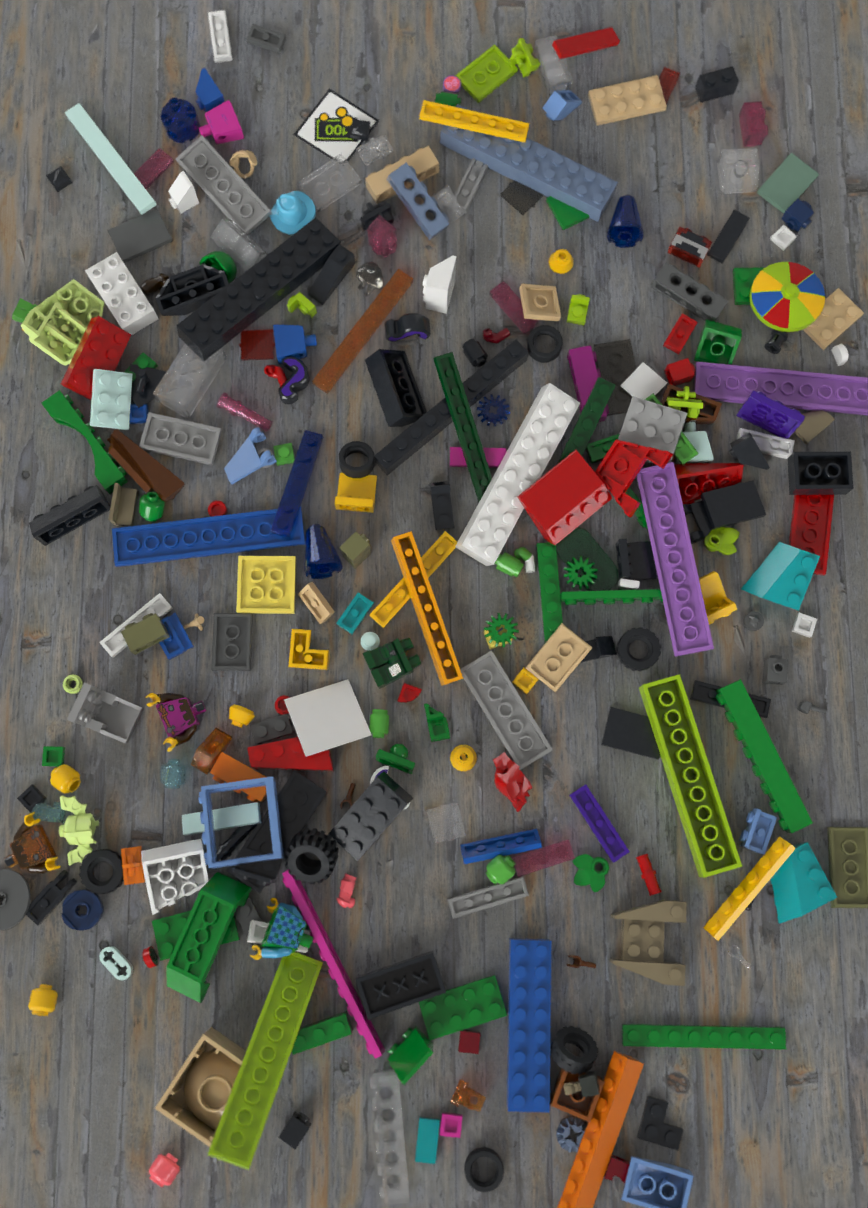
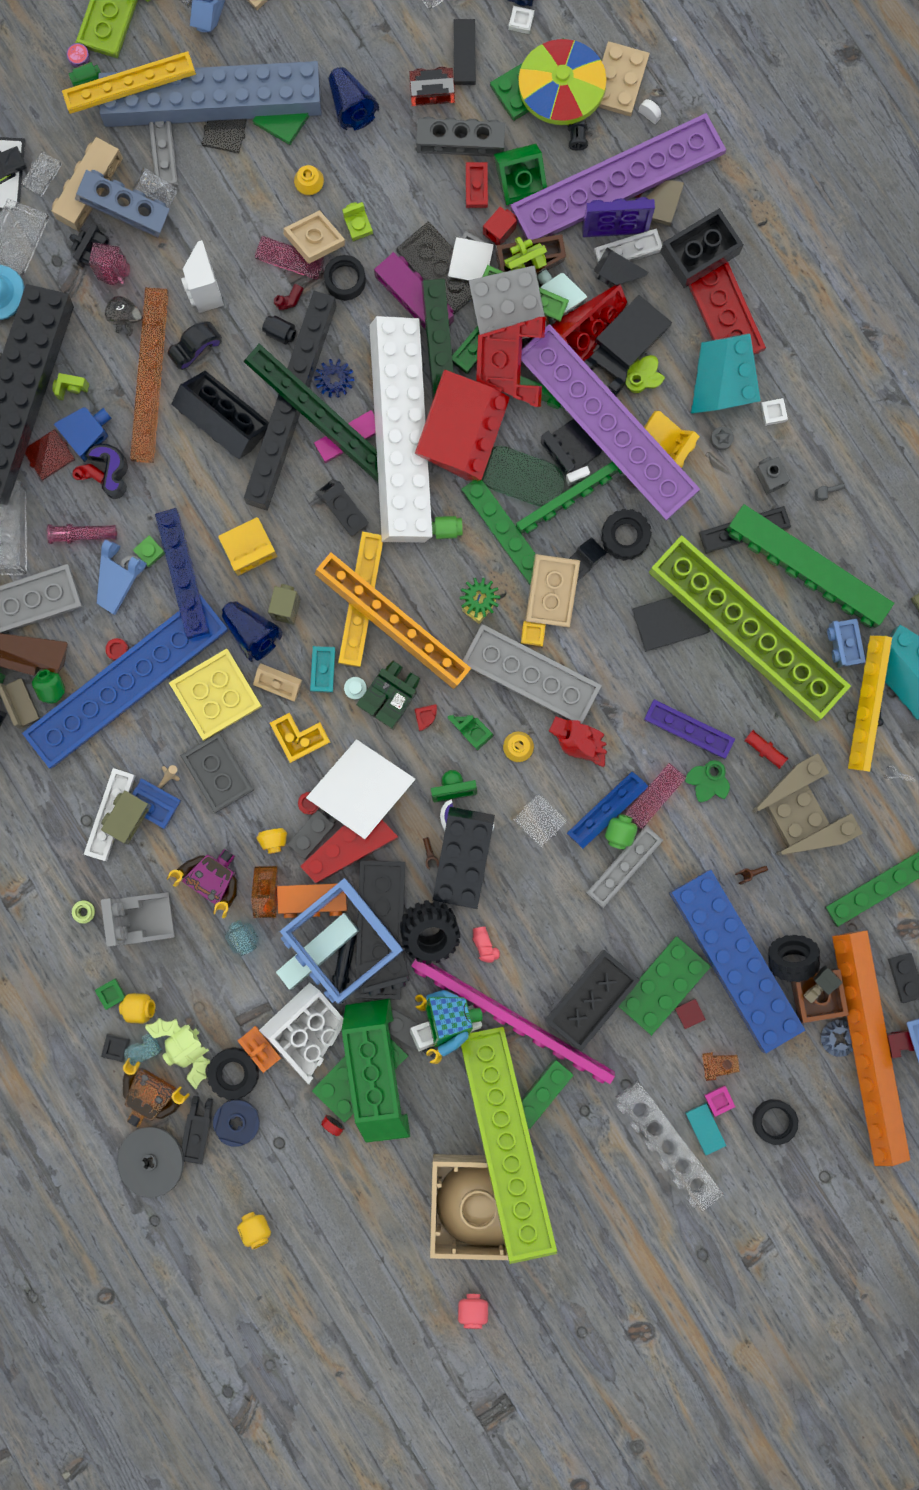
camera: 30 degrees left, 5 degrees up
(112, 966) = (301, 1157): light aqua beam -> none
(295, 1129) = (574, 1197): black brick -> none
(332, 274) = (80, 334): black slope -> none
(356, 447) = (220, 499): black tyre -> none
(379, 723) = (415, 763): bright green brick -> none
(410, 1053) = (640, 1058): green slope -> none
(528, 557) = (460, 508): arm -> none
(574, 576) = (518, 500): green gear -> none

